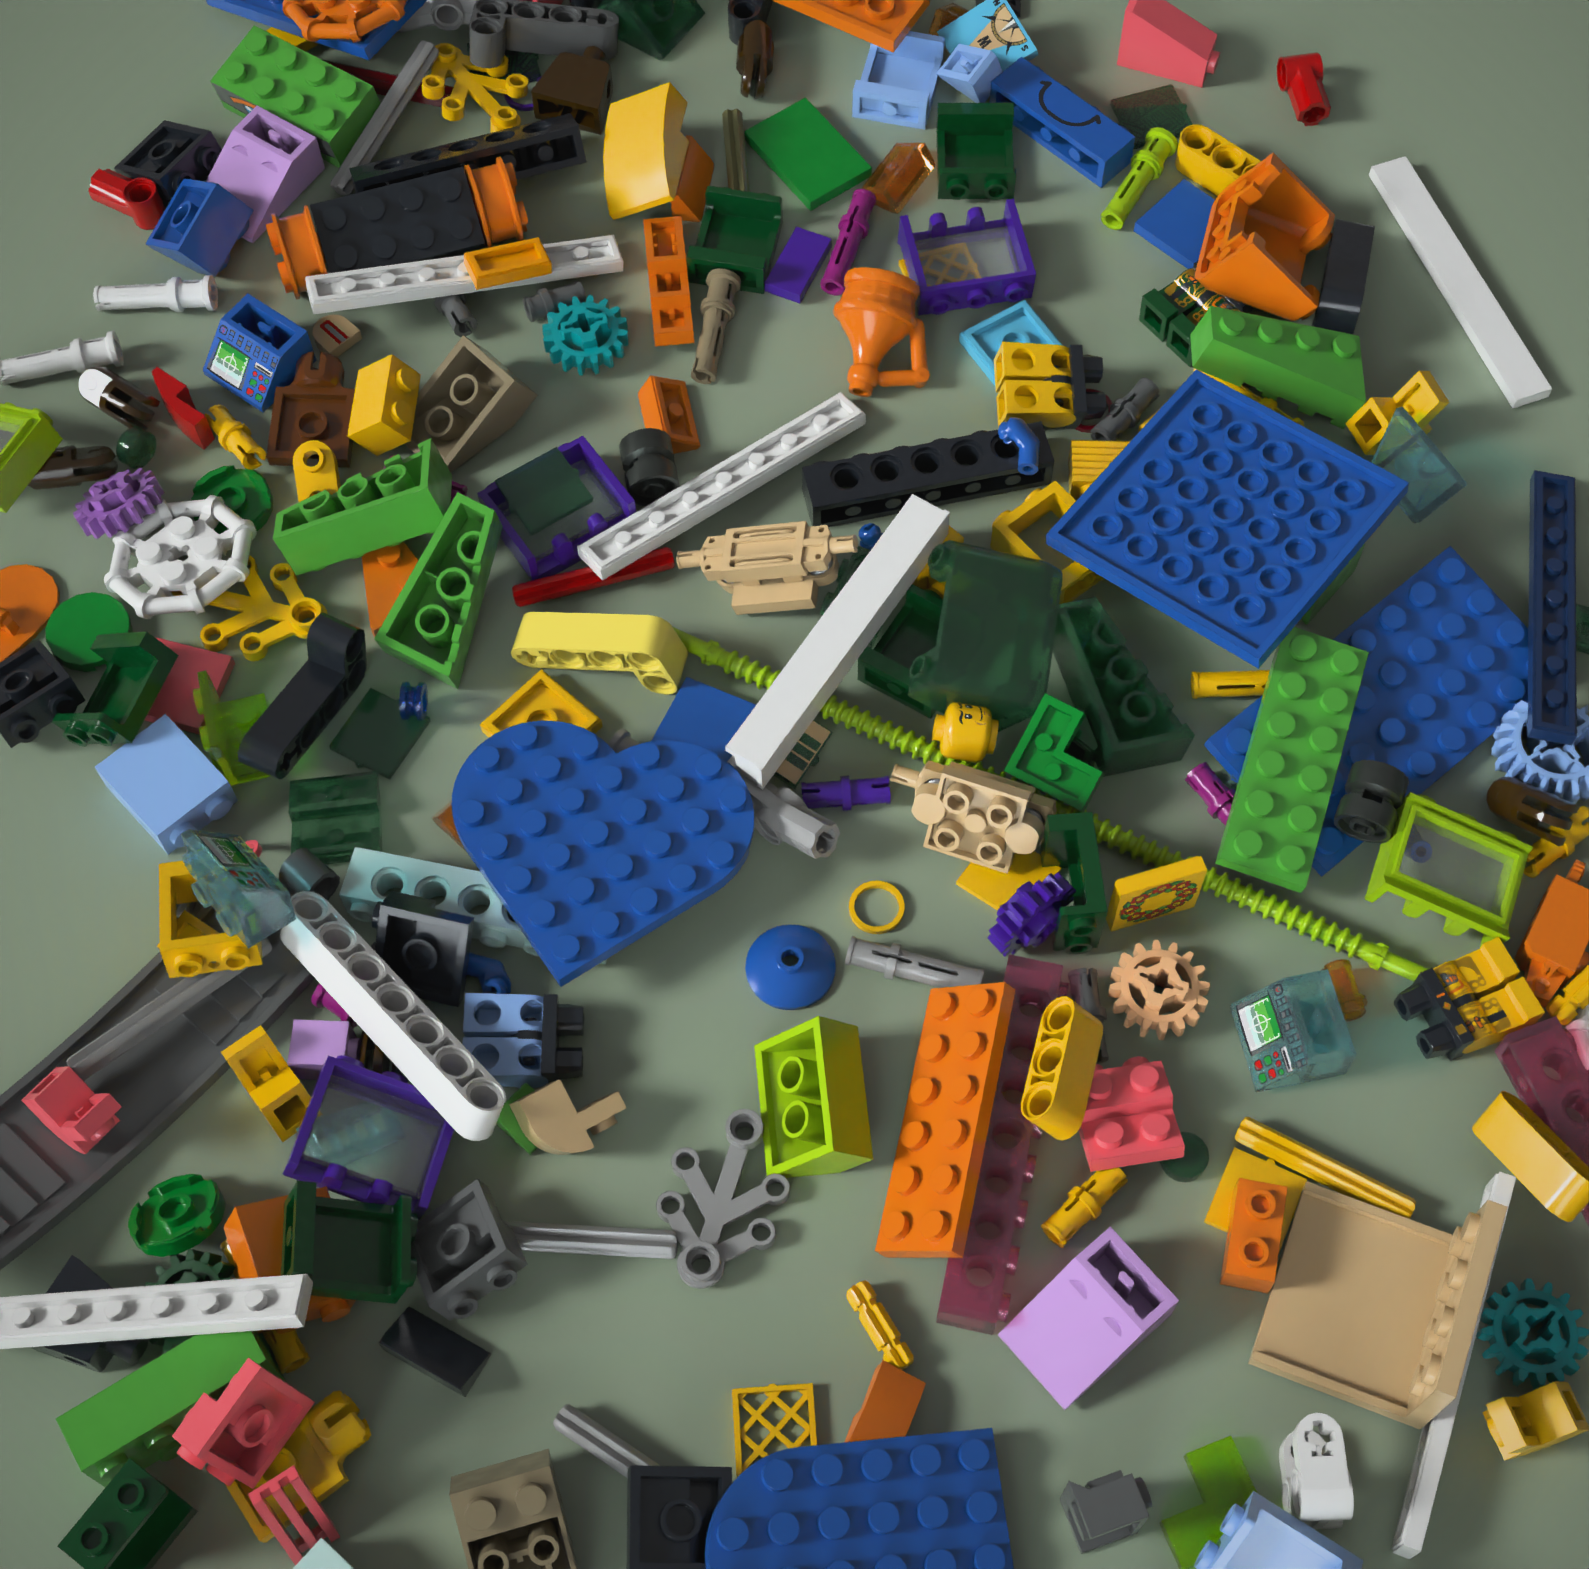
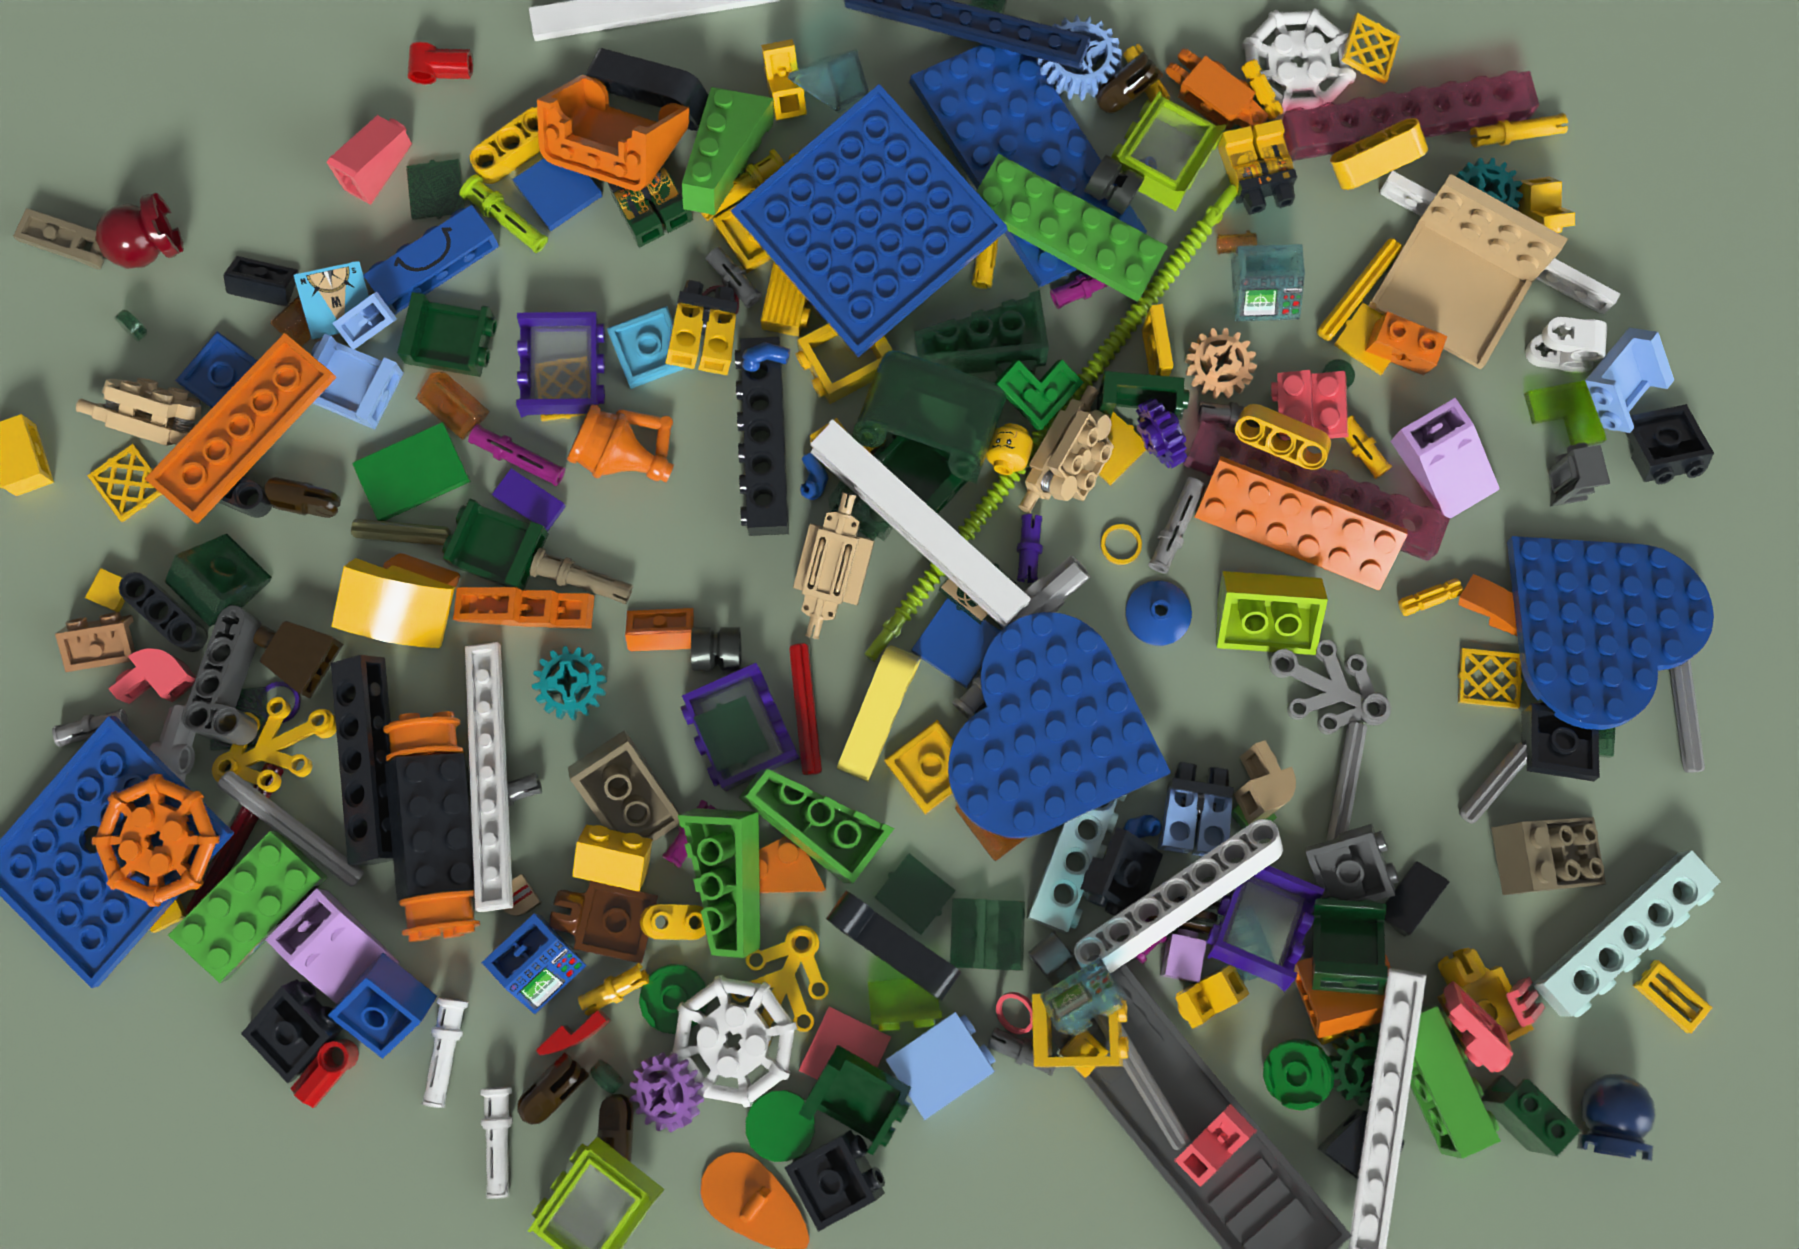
camera: 85 degrees left, 15 degrees up
(413, 701) = (901, 861): clear blue bush -> none
(507, 263) = (490, 736): light orange tile -> none
(547, 301) = (527, 710): dark grey pin -> none
(720, 486) = (742, 595): white tile -> none

